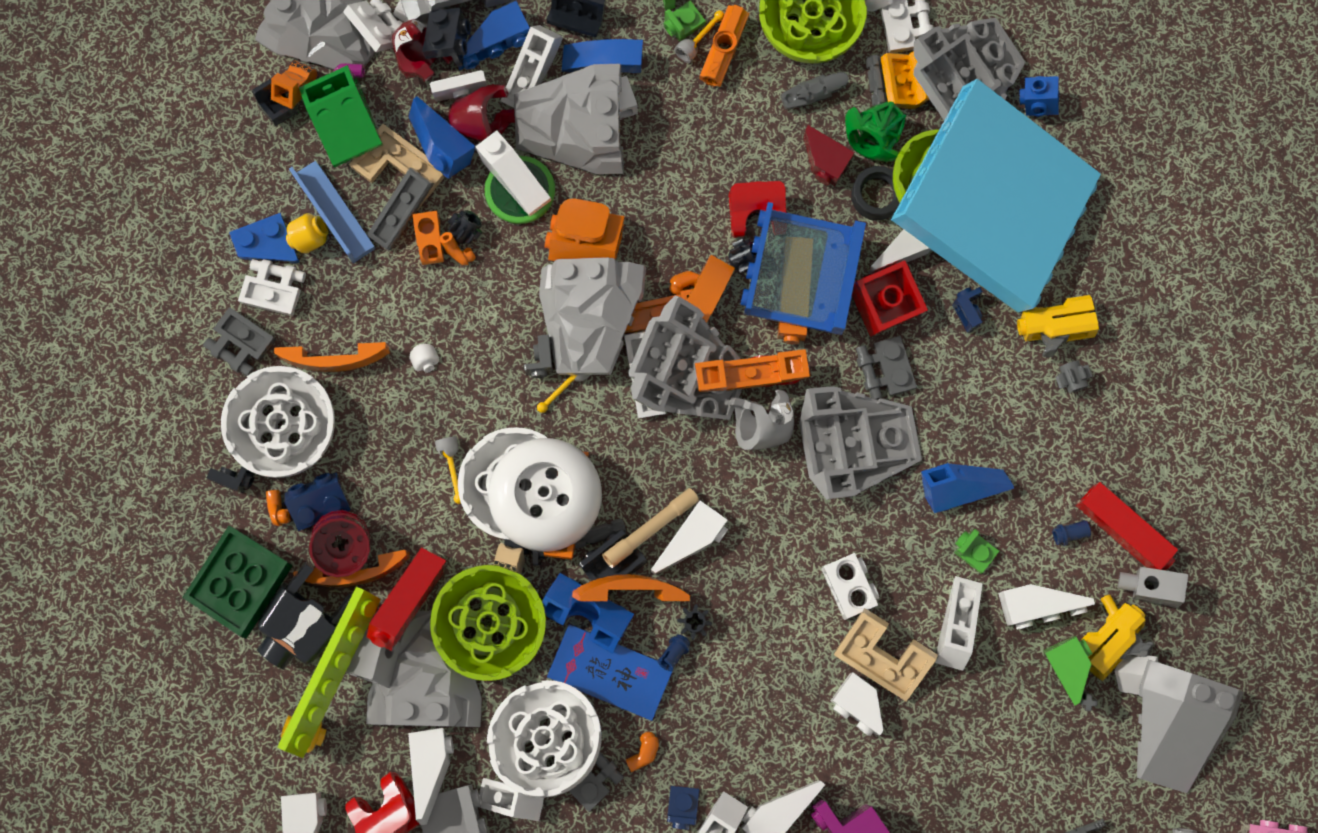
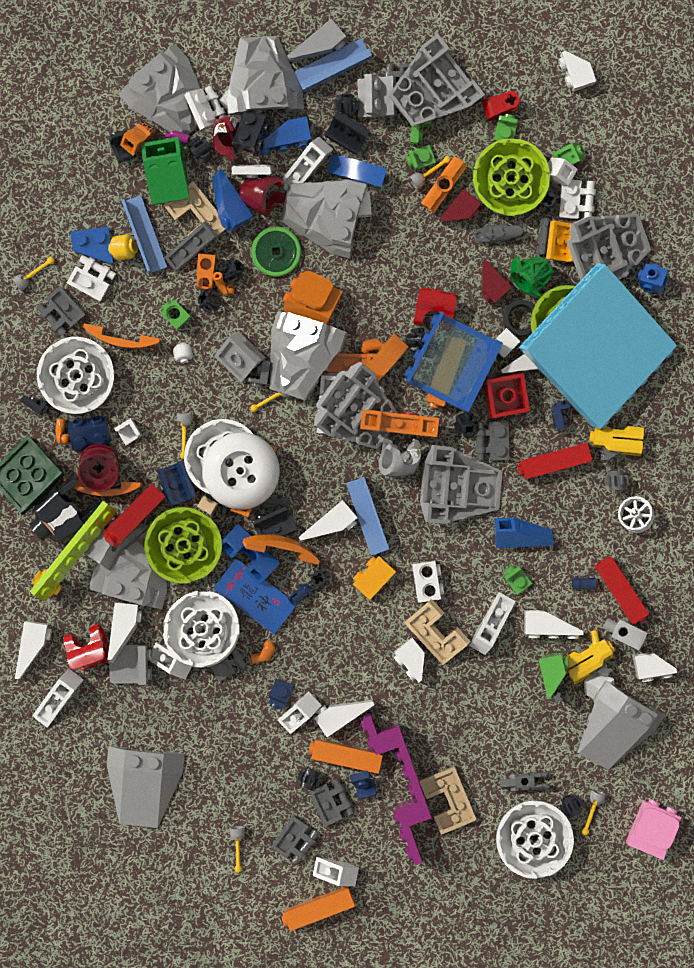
camera: 15 degrees right, 10 degrees up
(175, 314) = (22, 281): none -> hinge
(371, 483) = (128, 431): none -> white panel
(382, 78) = (200, 148): none -> black gear
(406, 316) = (181, 320): none -> bright green brick
(443, 275) = (209, 300): none -> black gear
(458, 539) = (176, 484): none -> dark blue bracket
(502, 340) = (239, 356): none -> light grey bracket
(512, 173) = (273, 242): white slope -> none
(626, 546) = (325, 500): tan piece -> none
(741, 516) = (367, 516): none -> medium blue panel
(757, 70) = (462, 208): none -> dark red slope
(773, 599) = (373, 577): none -> light orange brick
(843, 353) = (465, 424): none -> black gear
(872, 39) = (554, 202): none -> black gear
(873, 227) = (509, 342): none -> white panel
(980, 372) = (554, 461): none -> red brick
(1115, 416) = (636, 514): none -> white wheel
(1203, 623) = (650, 665): none -> white slope

